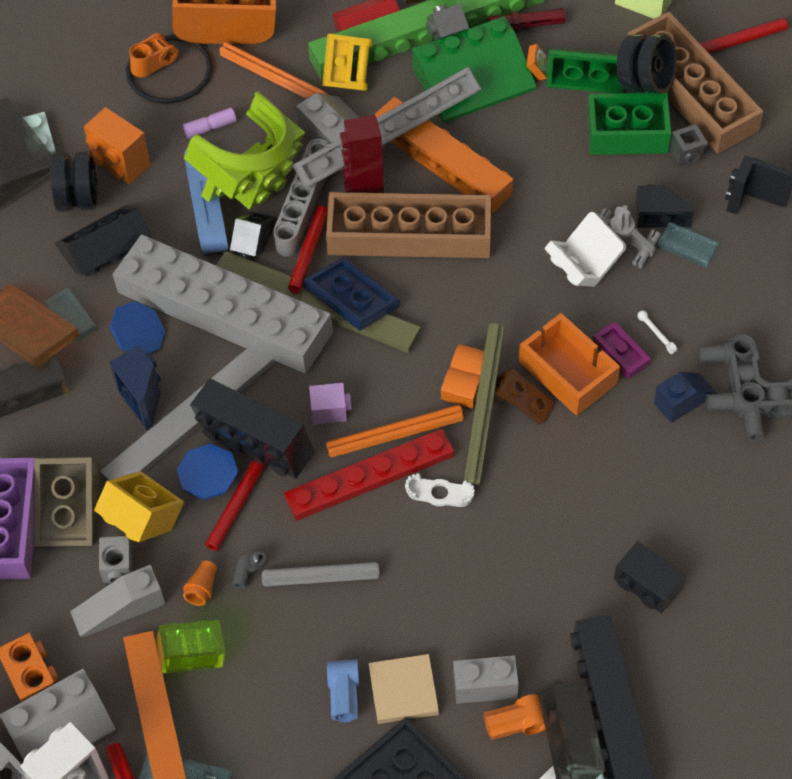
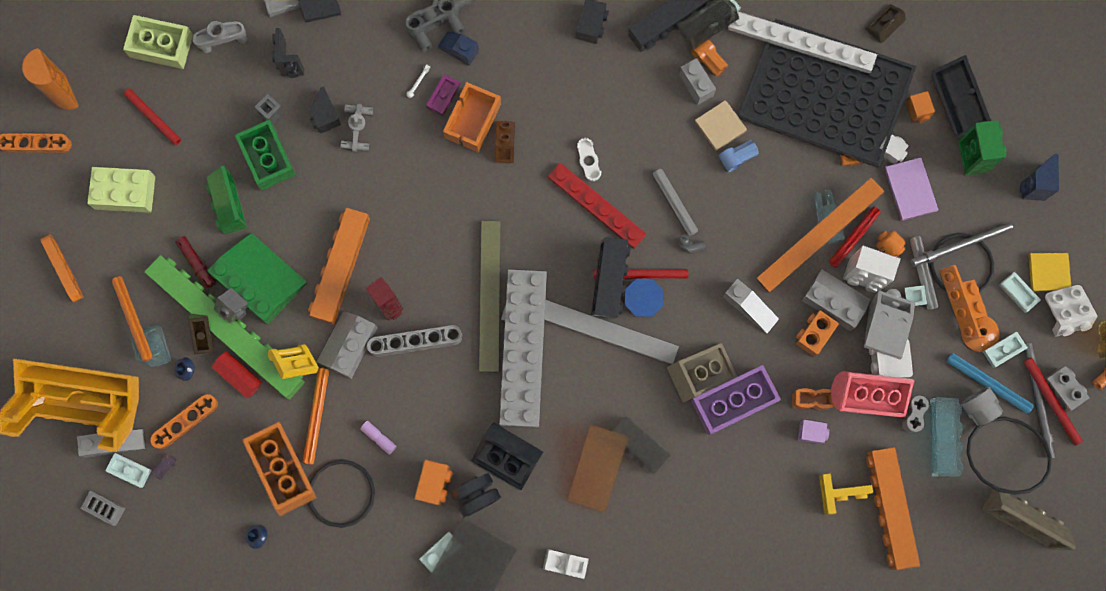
camera: 120 degrees left, 20 degrees up
(68, 308) = (571, 447): clear light blue tile -> none
(111, 549) = (718, 324): light grey brick -> none
(137, 325) = (566, 394): blue piece -> none
(138, 383) = (608, 366): dark blue slope -> none
(138, 506) = (691, 320): yellow brick -> none
(149, 55) = (336, 505): orange piece -> none
(190, 646) = (758, 247): clear neon green brick -> none
(200, 585) = (715, 265): orange cone -> none
(207, 214) = (444, 405): medium blue piece -> none
(252, 234) = (458, 359): slope -> none
(259, 169) = (414, 375): lime piece -> none
(308, 249) = (454, 317): red piece -> none
(329, 403) = (562, 249): lavender brick -> none
(351, 293) = (477, 273): dark blue tile -> none
(393, 123) = (342, 303): light grey tile -> none
(394, 431) = (561, 203): orange axle -> none
(409, 225) = (410, 259): medium nougat brick -> none
(463, 377) = (505, 177): orange brick -> none
(484, 404) = (522, 154): olive axle -> none
(537, 62) = (232, 237): orange tile -> none
(588, 251) = (382, 140): white bracket -> none
(646, 63) = (223, 149): black wheel -> none
(688, 245) = (343, 87): clear light blue tile -> none
(705, 90) = (211, 127): medium nougat brick -> none

